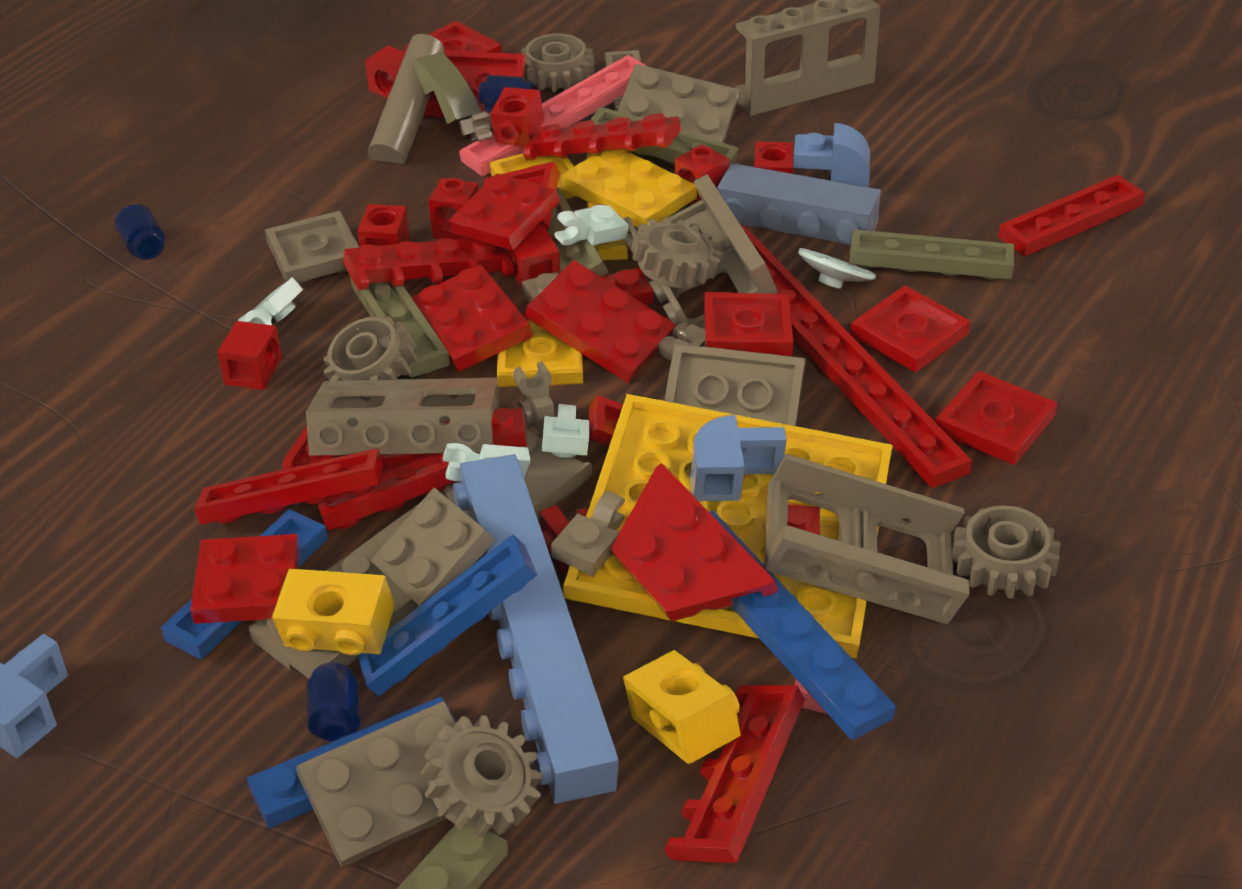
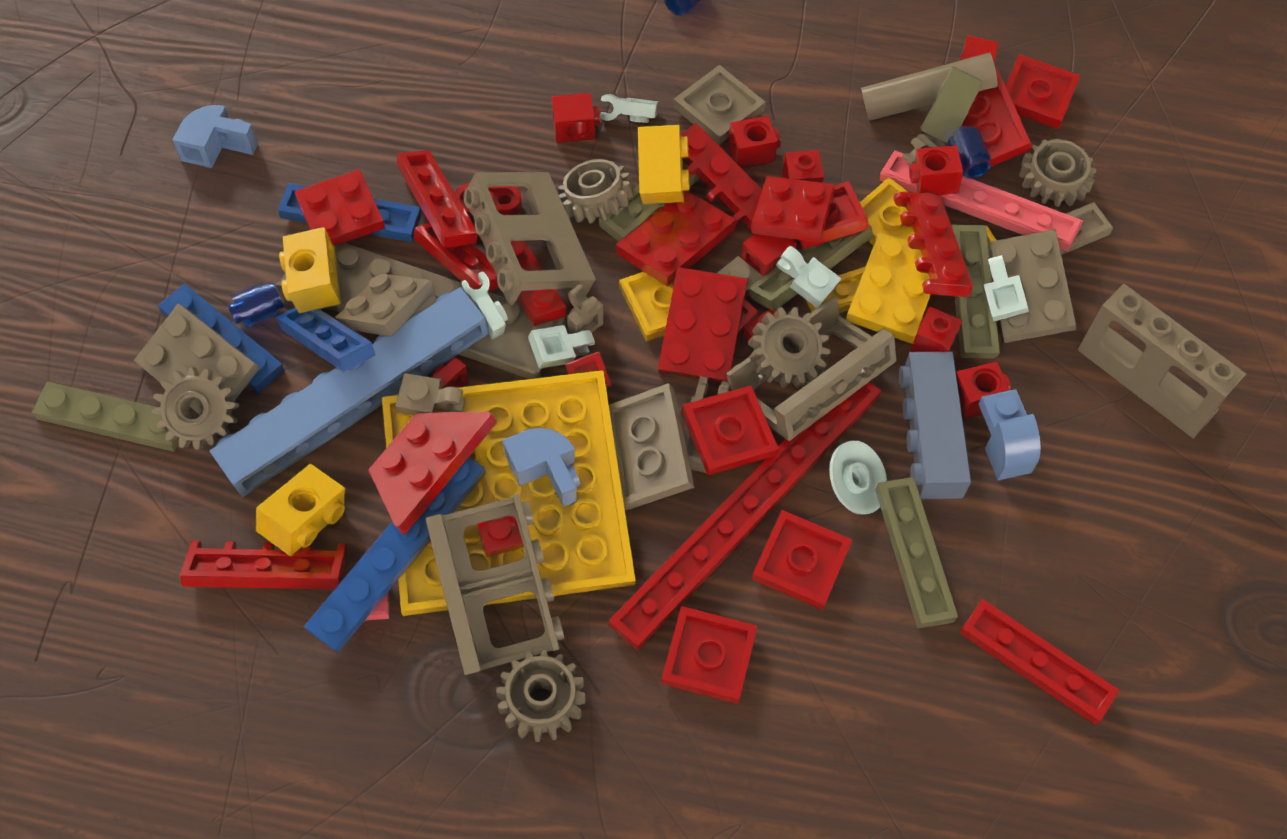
camera: 65 degrees right, 20 degrees up
(388, 280) = (661, 164): none -> yellow brick
(692, 110) = (1004, 294): none -> light aqua plate

